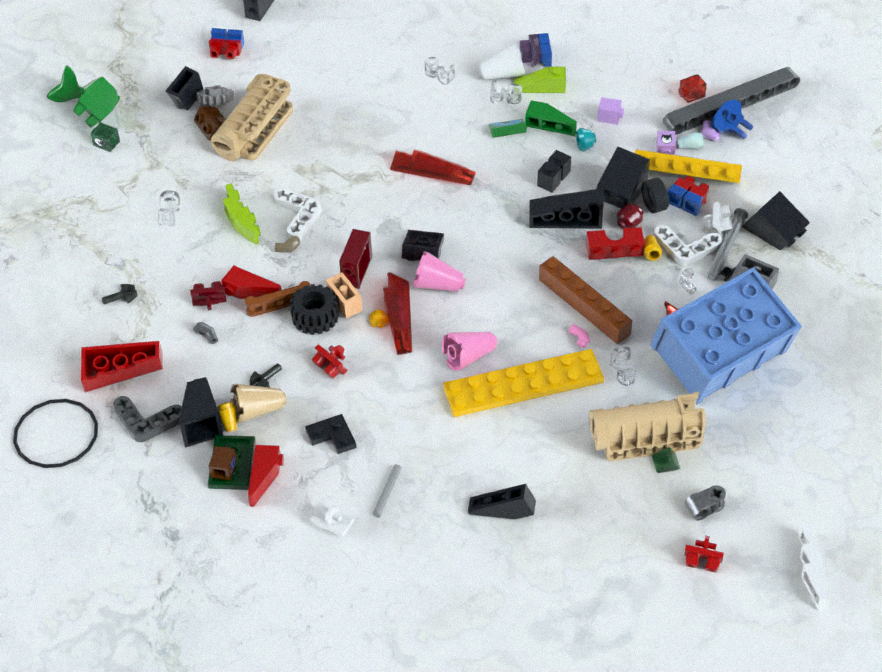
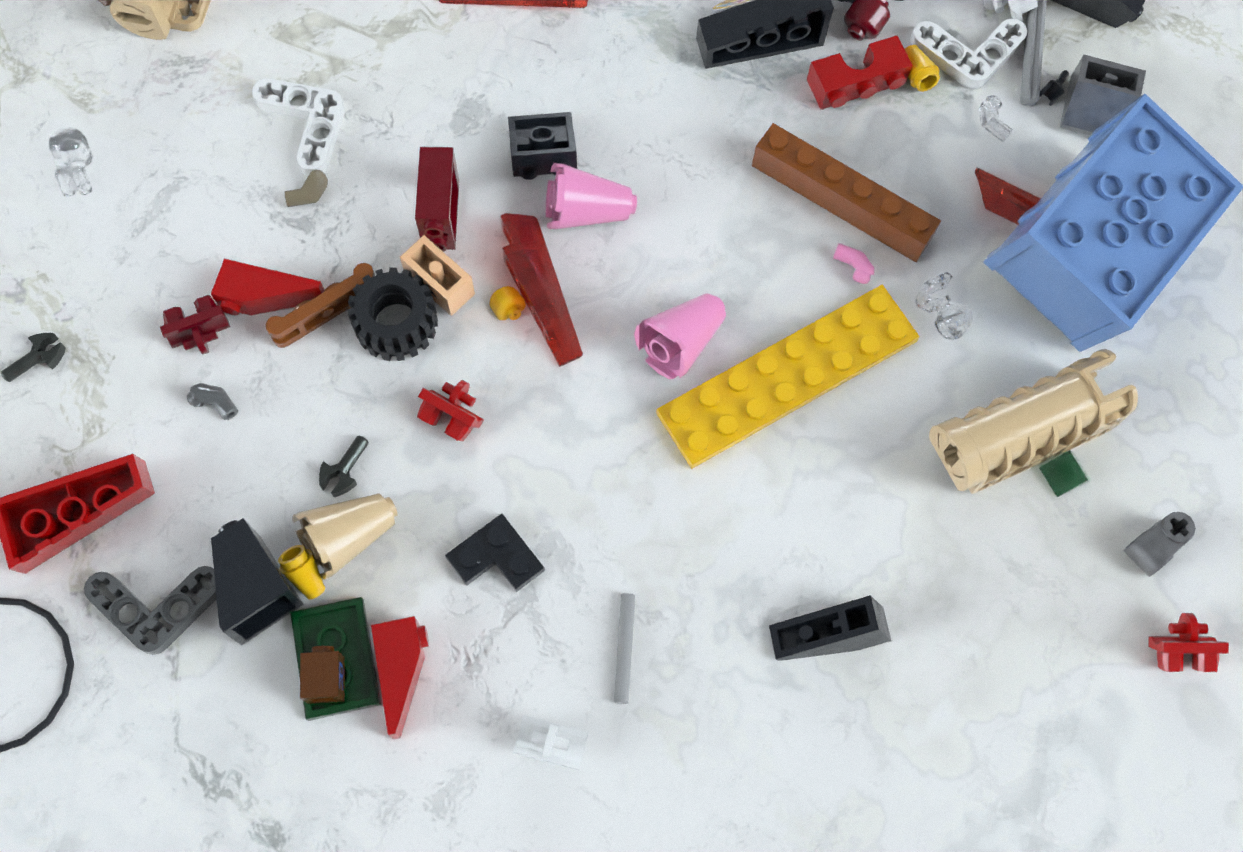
camera: 20 degrees left, 20 degrees up
(240, 216) = (206, 150): lime slope -> none

